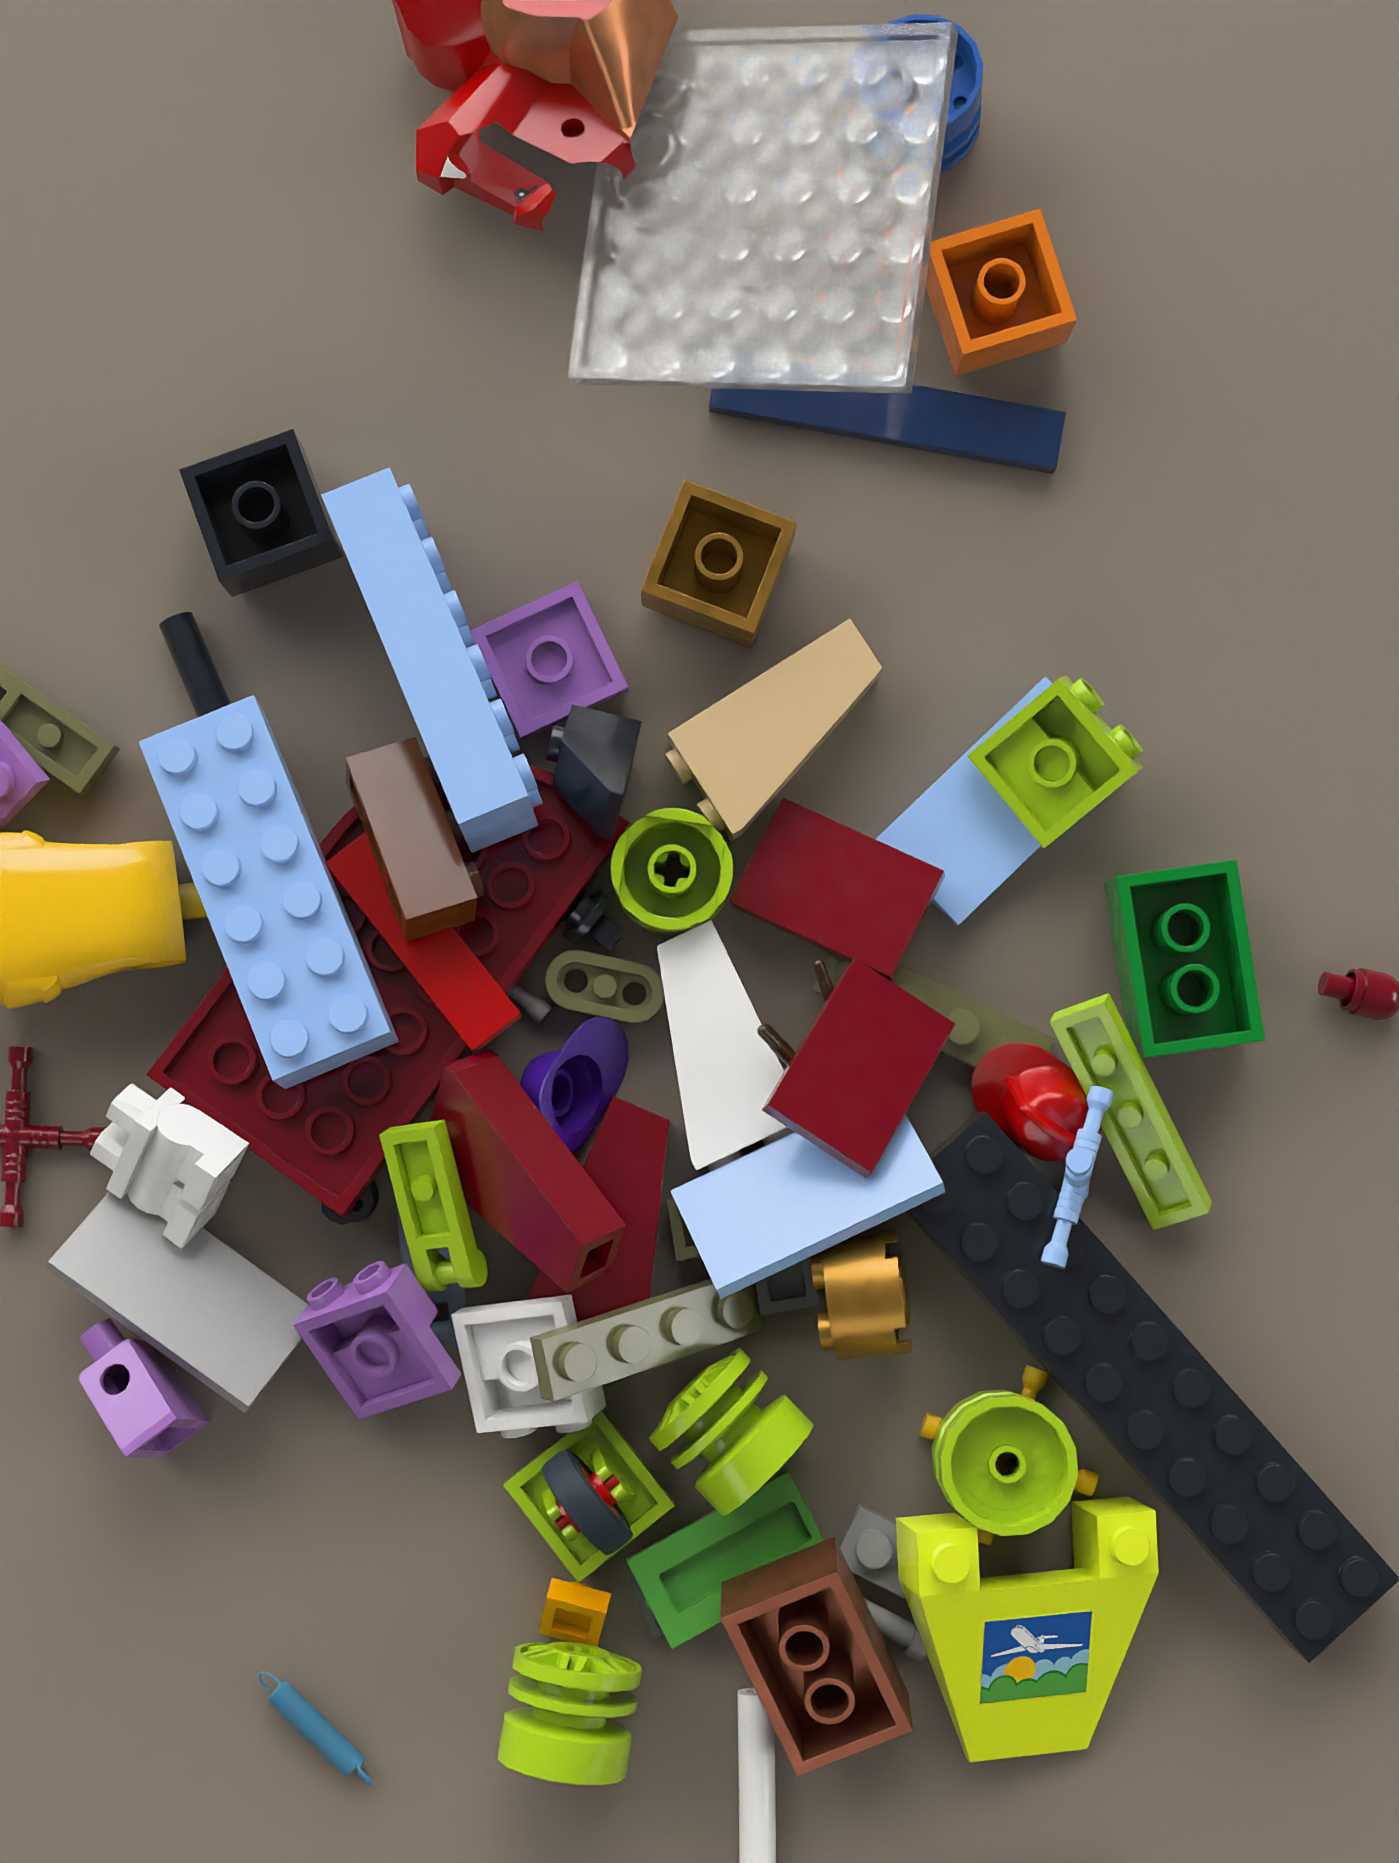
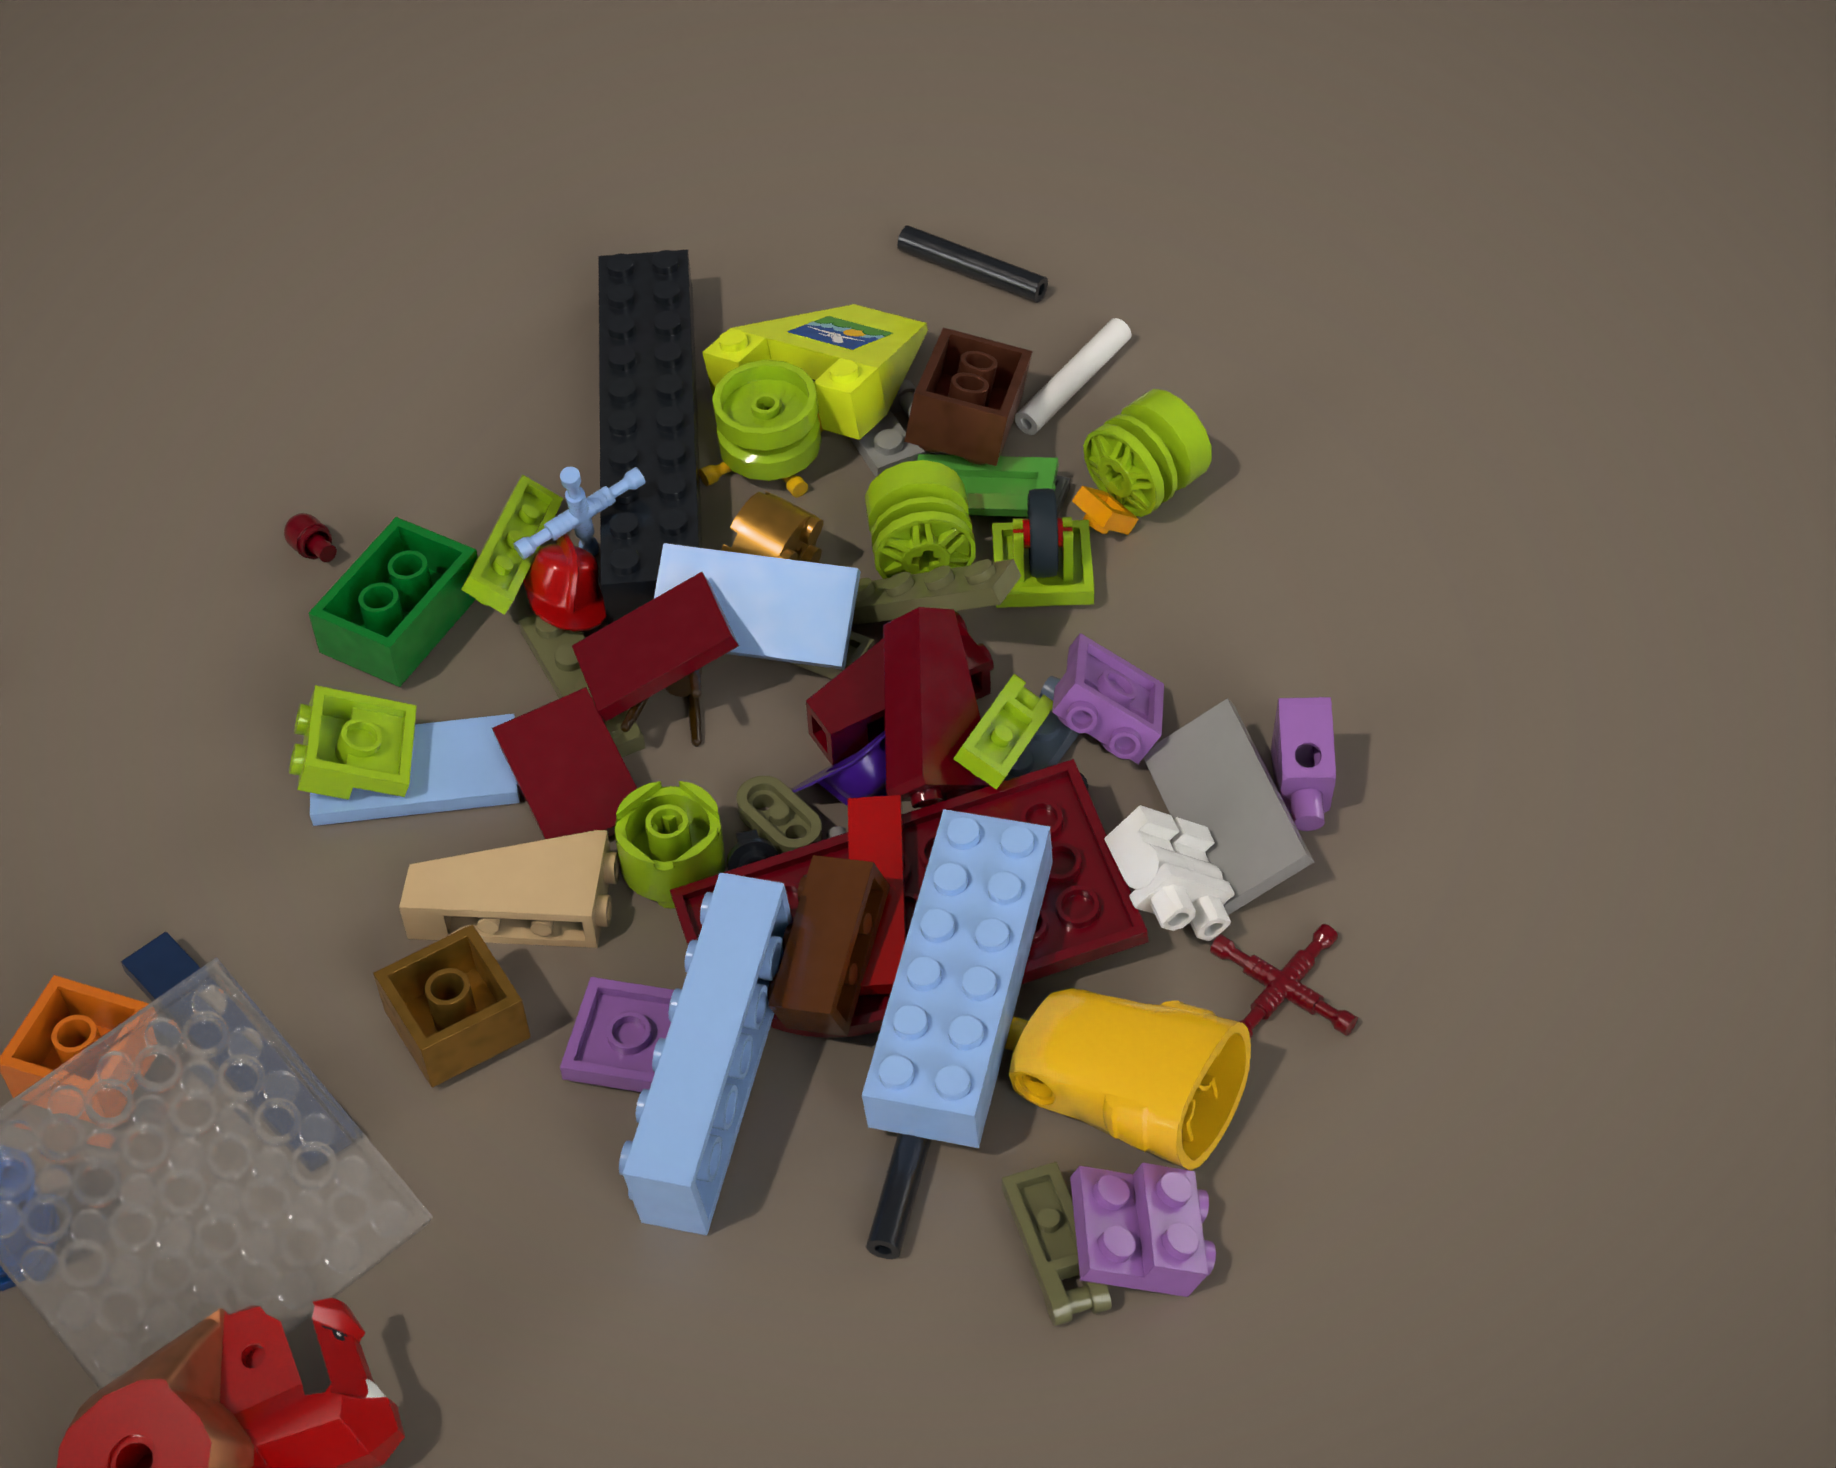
camera: 135 degrees left, 35 degrees down
(260, 513) = (749, 1259): black brick -> none
(316, 1728) = (1326, 551): dark azure piece -> none
(503, 1372) = (1024, 631): white plate -> none
(594, 764) = (658, 924): black slope -> none
(718, 1055) = (743, 724): white slope -> none

